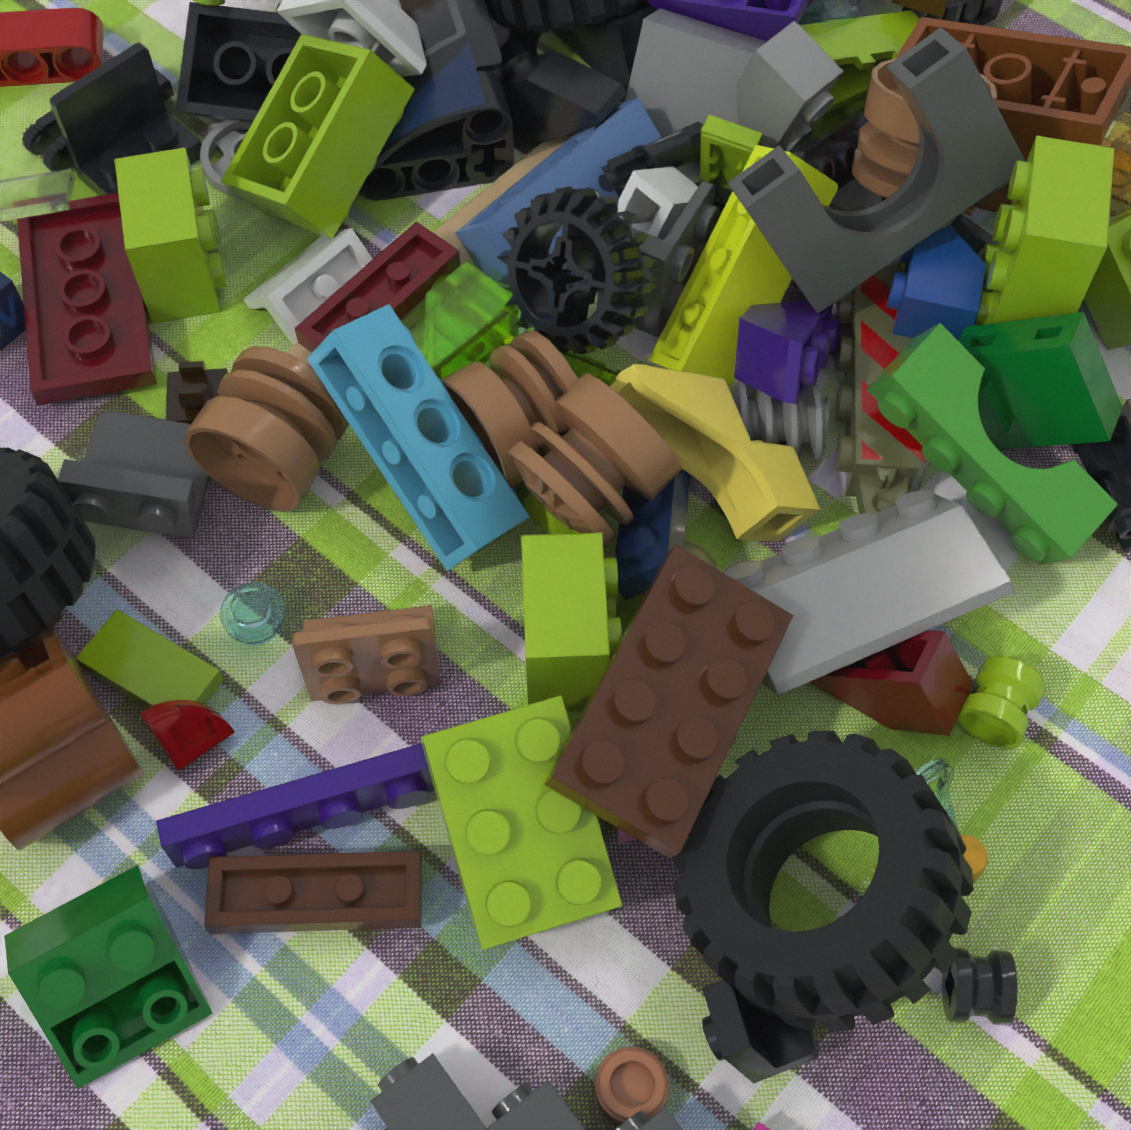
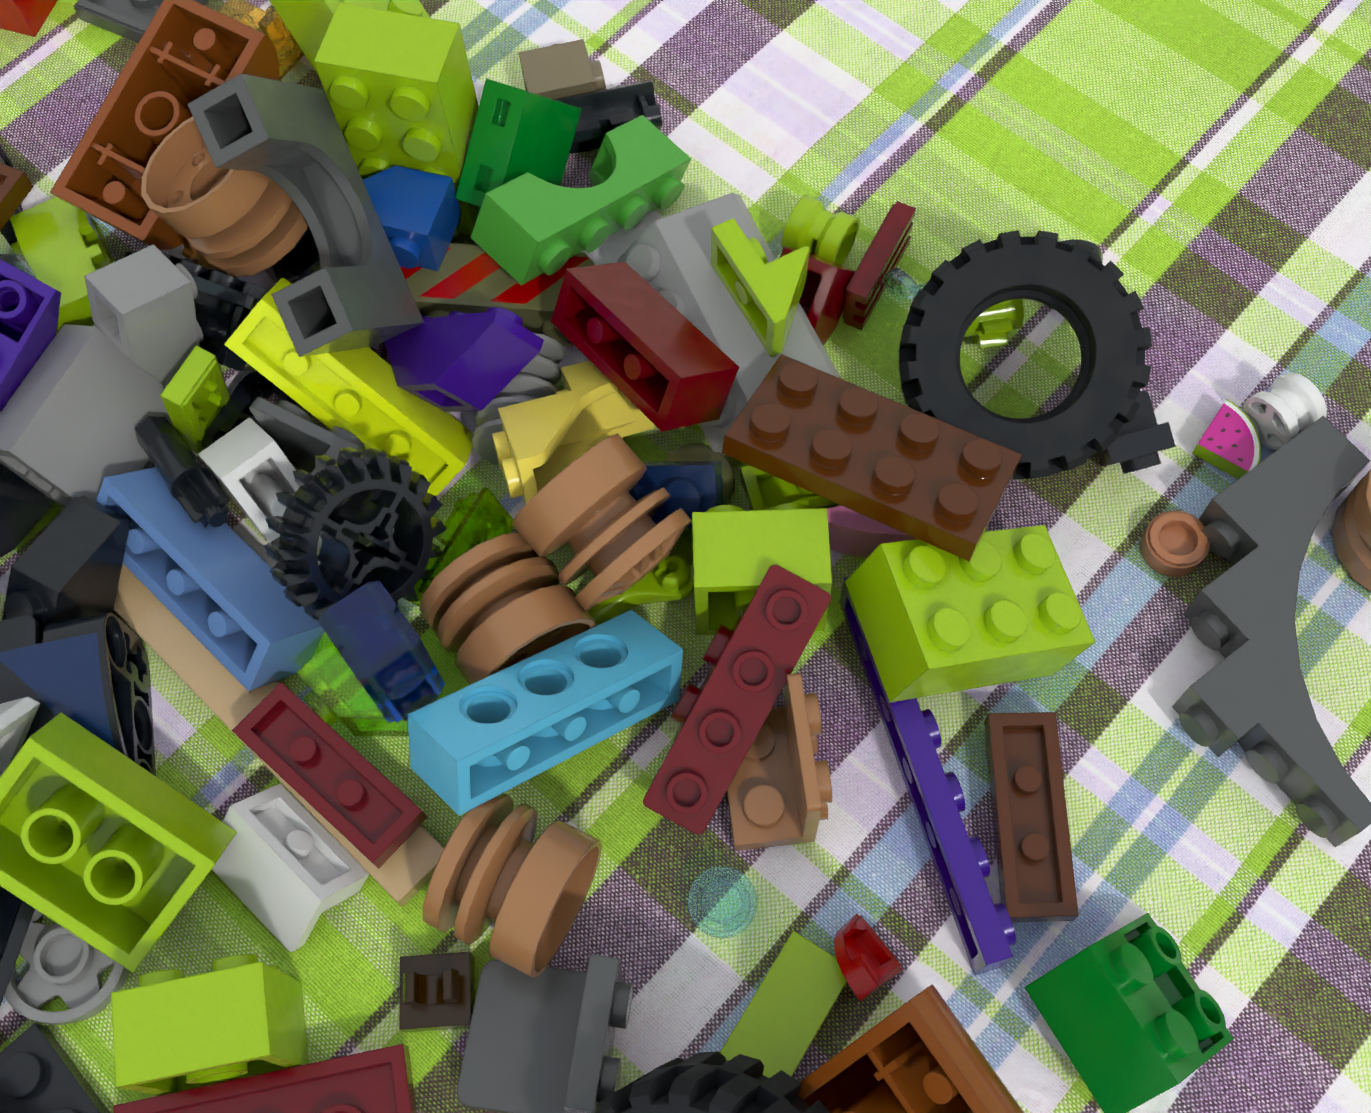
camera: 85 degrees left, 5 degrees up
(399, 585) = (735, 697): none -> dark red bracket
(456, 294) = (383, 651): none -> clear blue brick
(797, 493) = (644, 345): none -> dark red brick
(868, 597) = (762, 290): none -> lime slope
(976, 765) = (882, 256): none -> dark red tile

